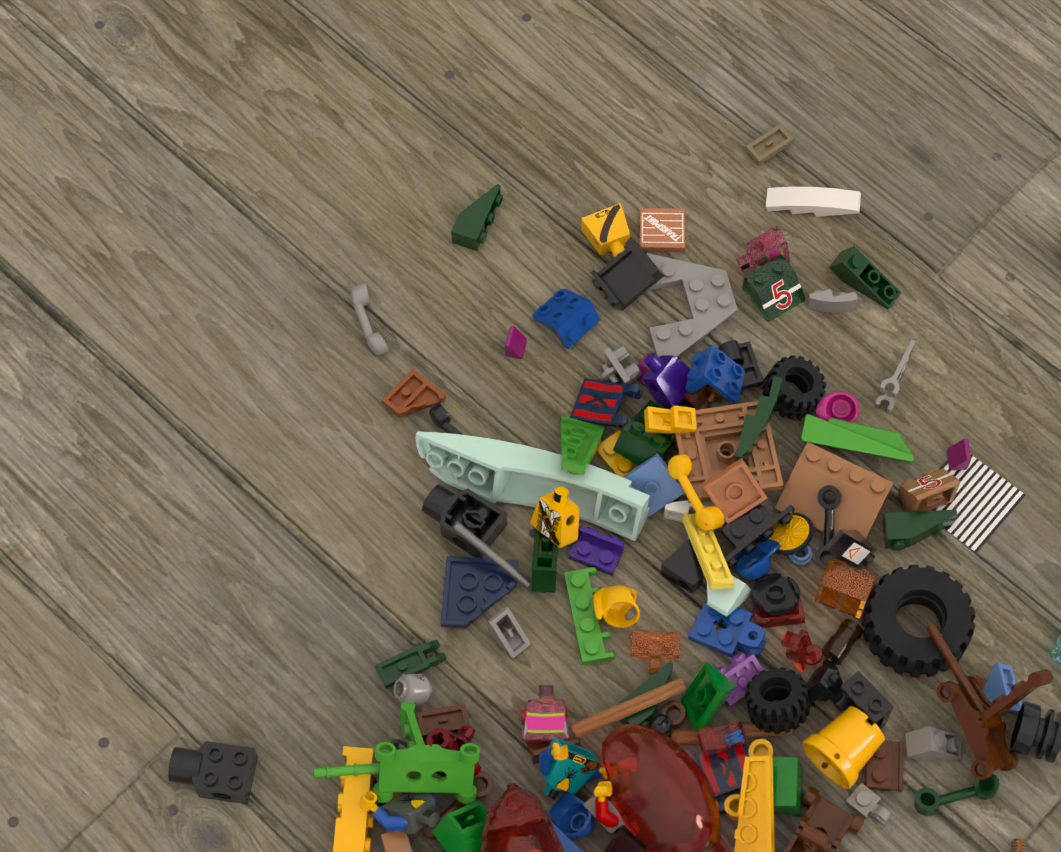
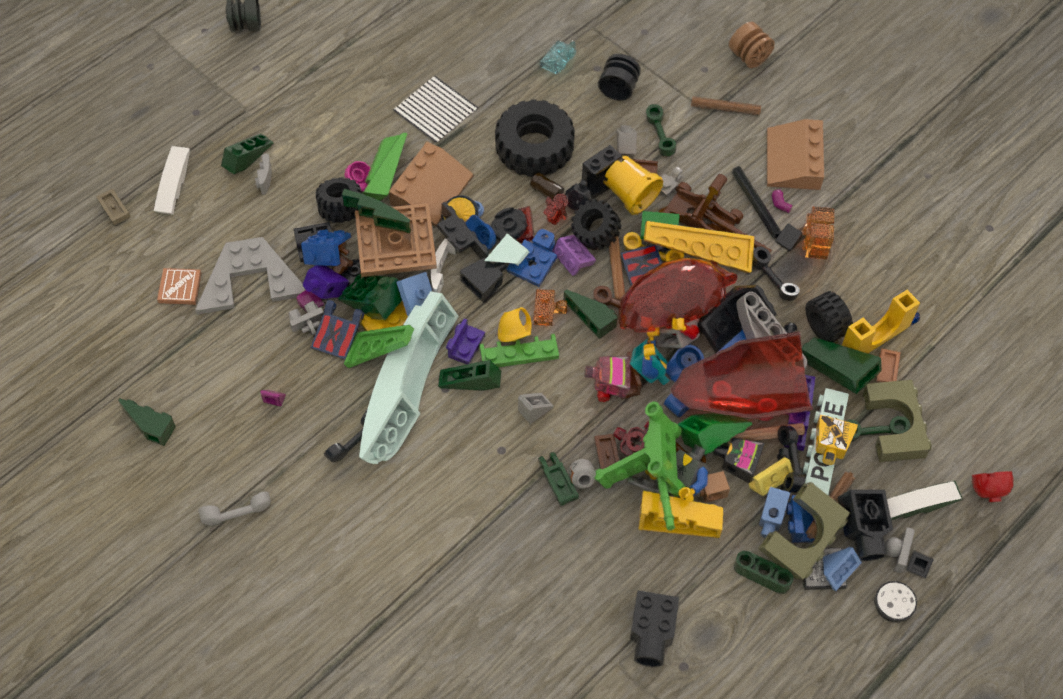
camera: 90 degrees left, 5 degrees down
(412, 395) = (312, 475): dark orange wing -> none
(470, 510) = (435, 432): black brick -> none
(472, 589) = (493, 430): dark blue plate -> none
(491, 554) = (471, 408): flat silver bar -> none
(557, 517) = (439, 362): yellow torso -> none
(568, 315) = (250, 356): blue bracket -> none
(607, 230) = (176, 322): yellow torso -> none
(627, 275) = (222, 307): black panel -> none
(628, 708) = (603, 317): medium nougat axle -> none
(662, 723) = (613, 301): black plate -> none
(672, 420) = (368, 271): yellow slope -> none
(706, 696) = (593, 268): green slope -> none
(707, 517) = (411, 267): yellow piece -> none
(708, 554) = (477, 258): light yellow tile -> none
(721, 738) = (624, 262): clear red leg -> none
(734, 490) = (432, 232): nougat tile -> none
(763, 249) = (215, 210): clear pink torso -> none
(773, 288) = (246, 211): clear green slope -> none
(830, 503) = (438, 180): black piece -> none
(848, 581) = (508, 176): clear orange piece -> none
(852, 548) = (478, 168): black slope -> none
(893, 382) = (338, 134): light grey flag -> none
(909, 528) = (460, 139): dark green slope -> none
(929, 491) = (433, 123): medium nougat slope -> none
(959, 455) = (403, 106): magenta slope -> none
(980, 718) = (610, 102): reddish brown piece -> none
(999, 683) = (584, 101): medium blue slope -> none

